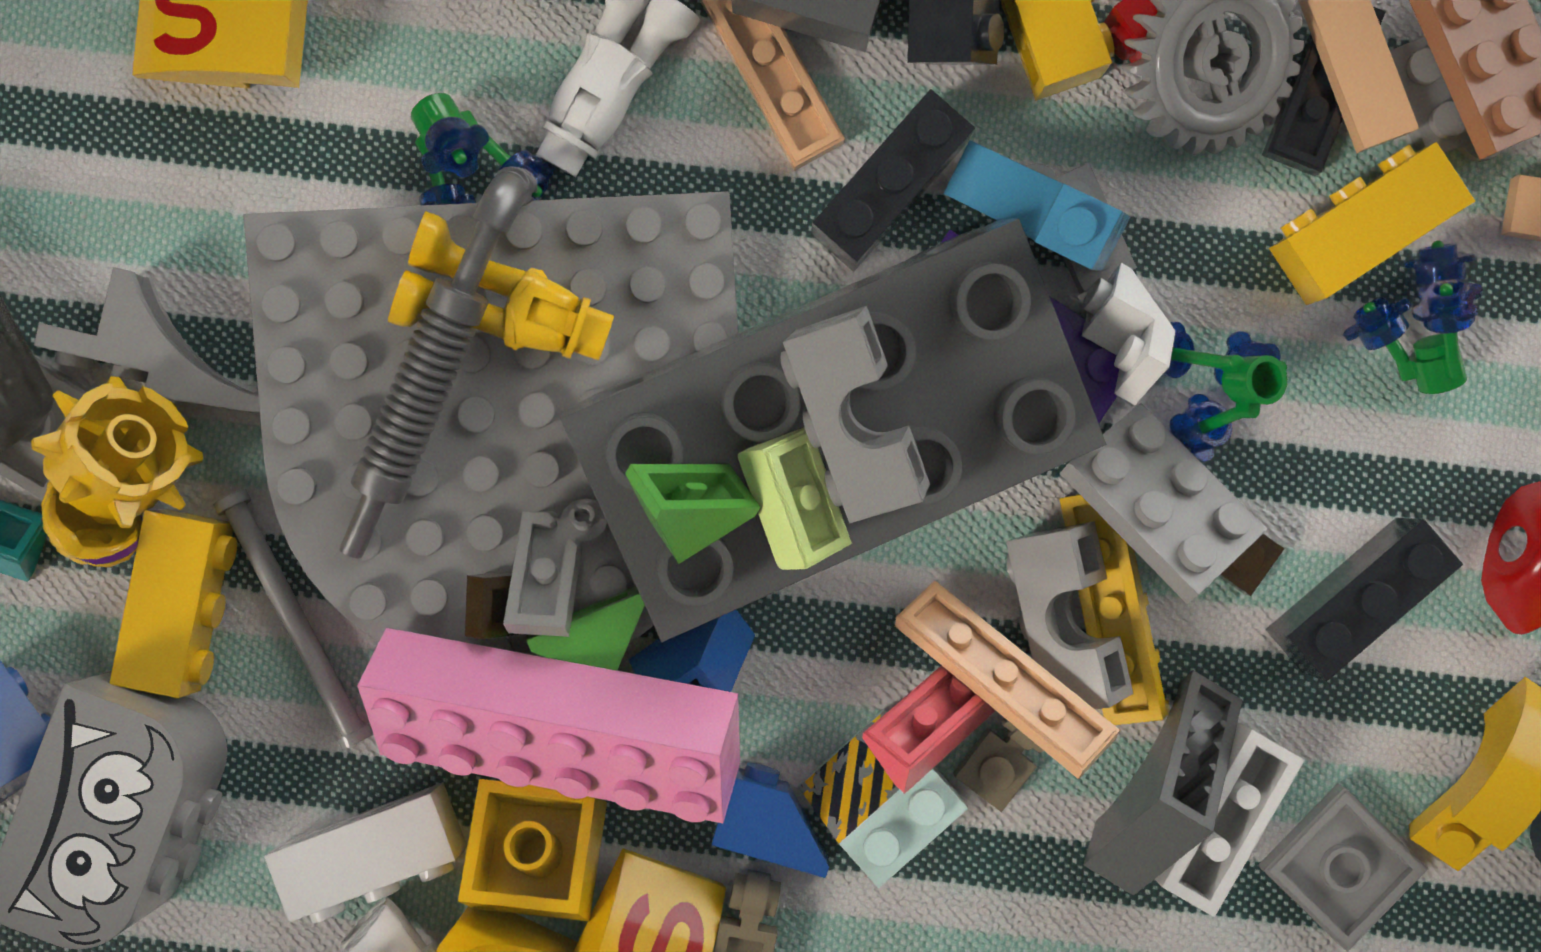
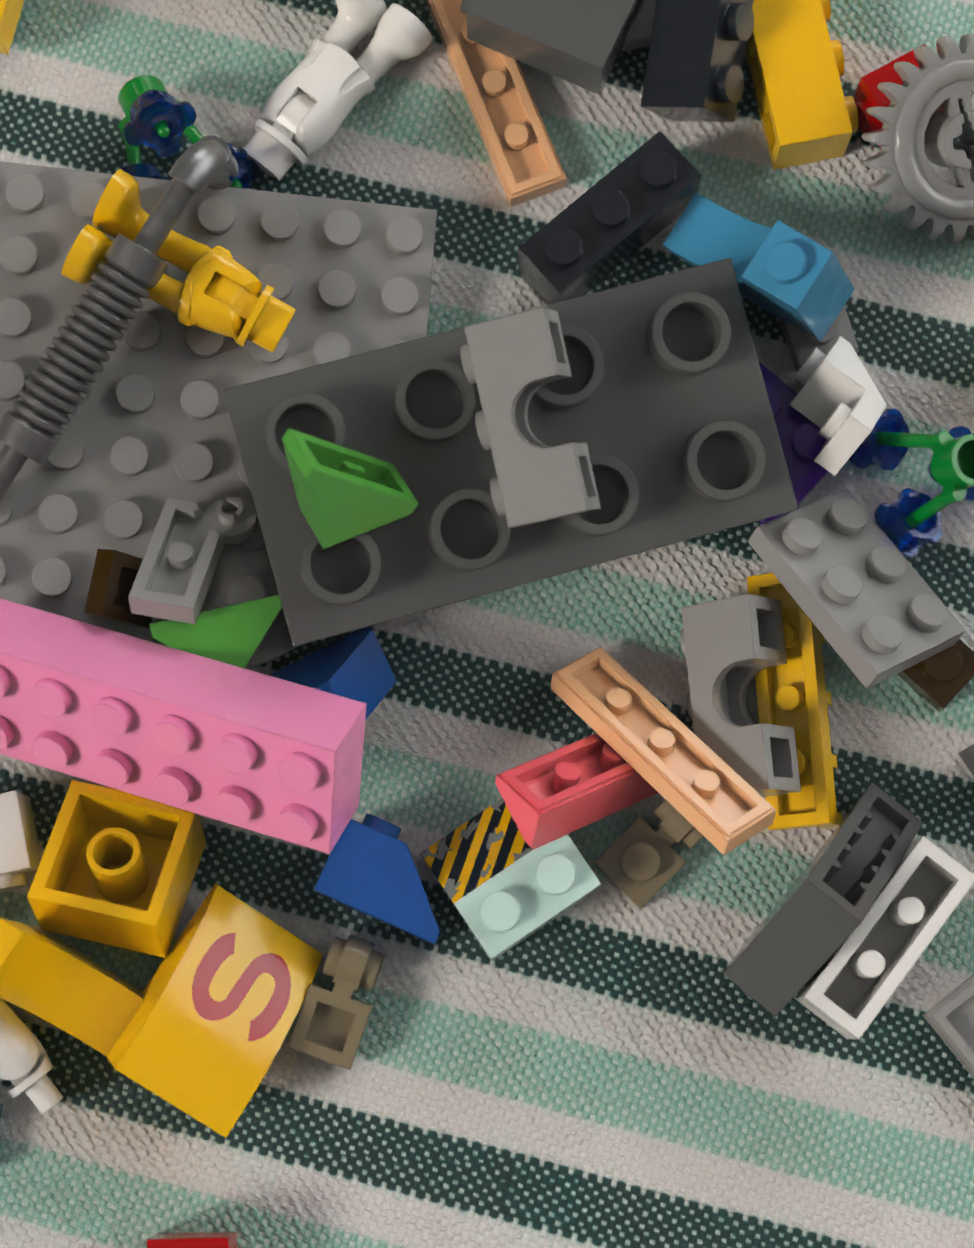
camera: 10 degrees right, 10 degrees down
(794, 501) = (455, 503): yellowish green slope -> none

